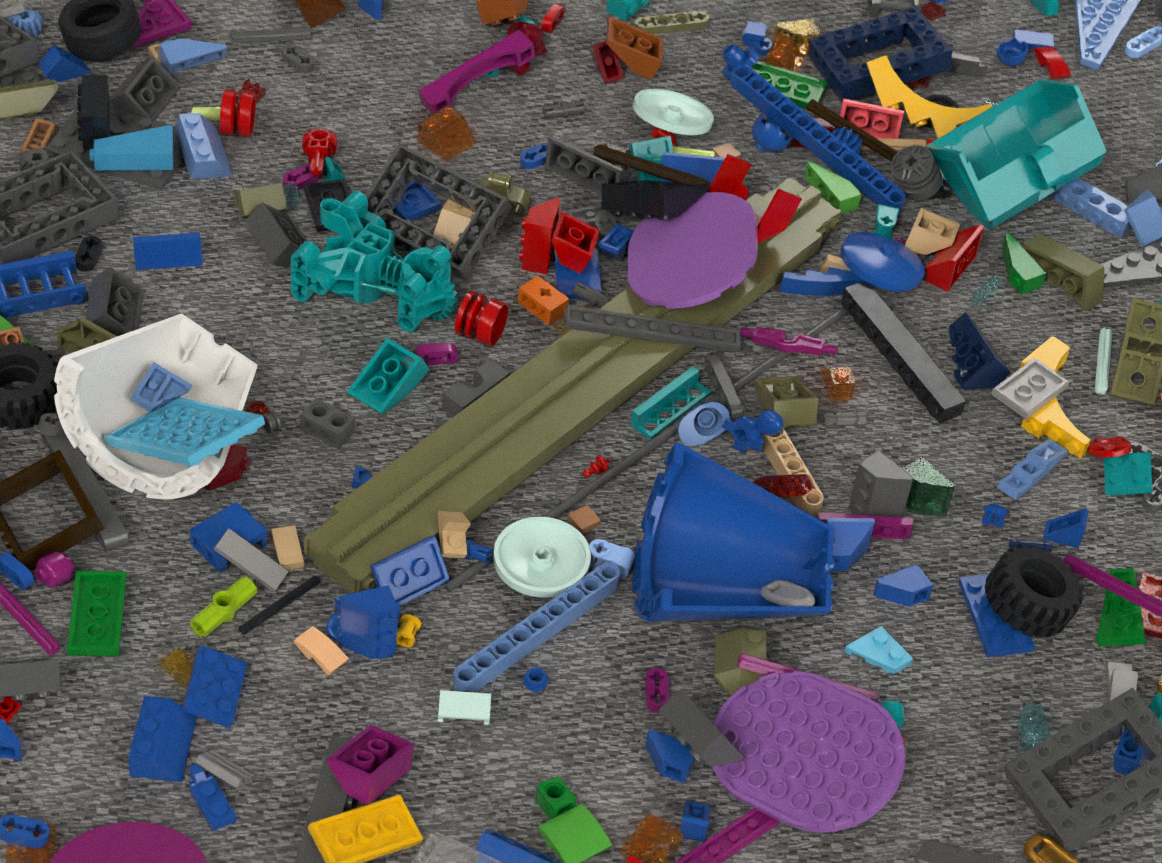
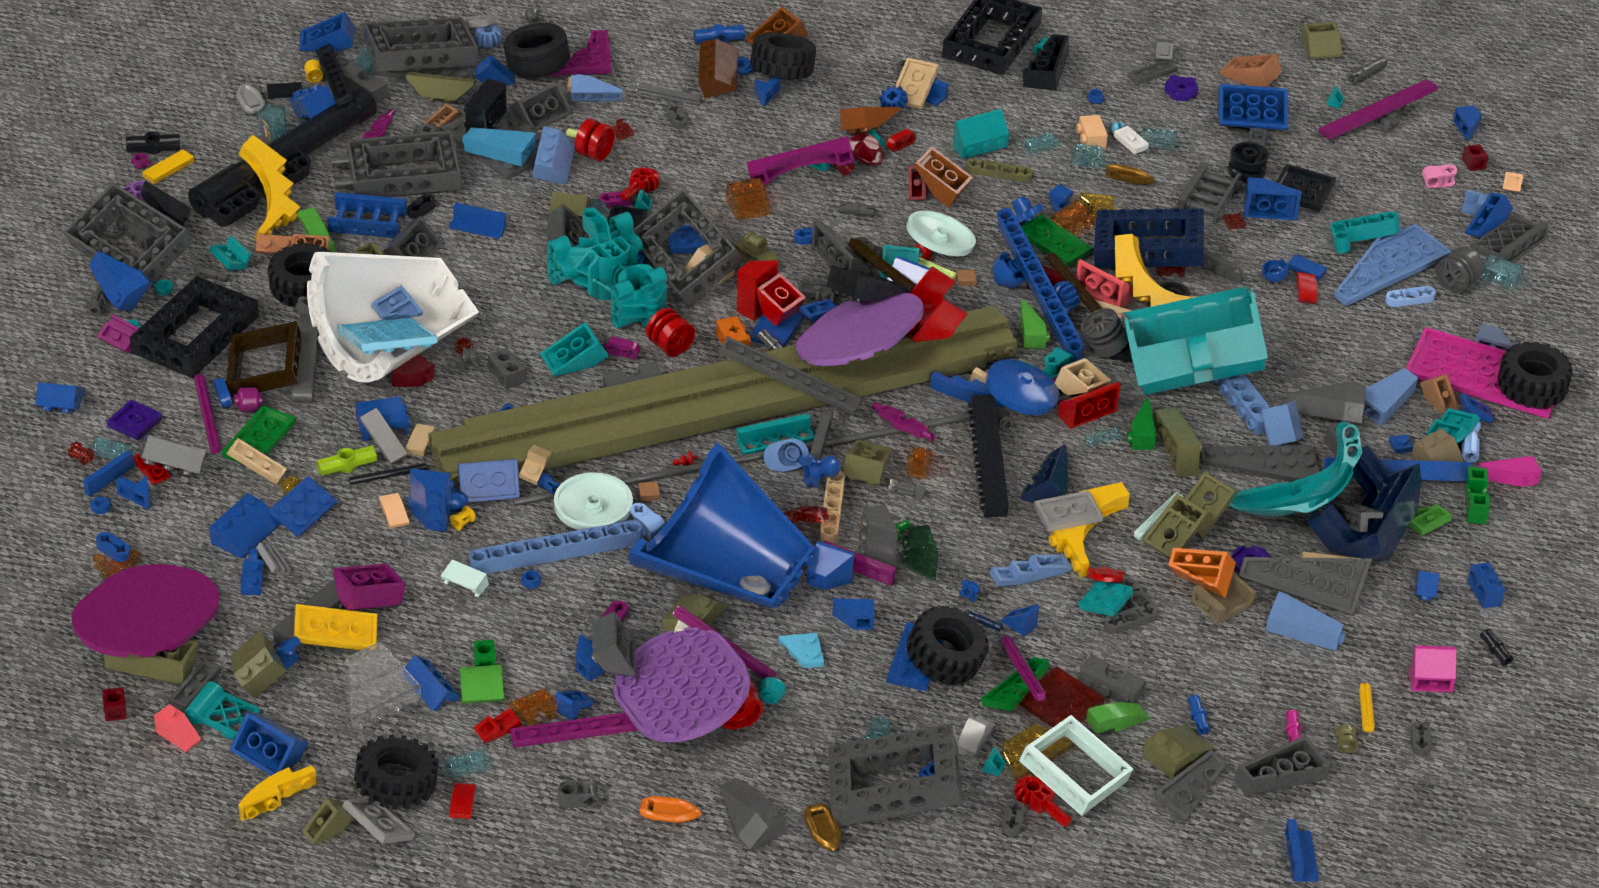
camera: 30 degrees right, 5 degrees down
(121, 647) = (256, 461): none -> tan tile

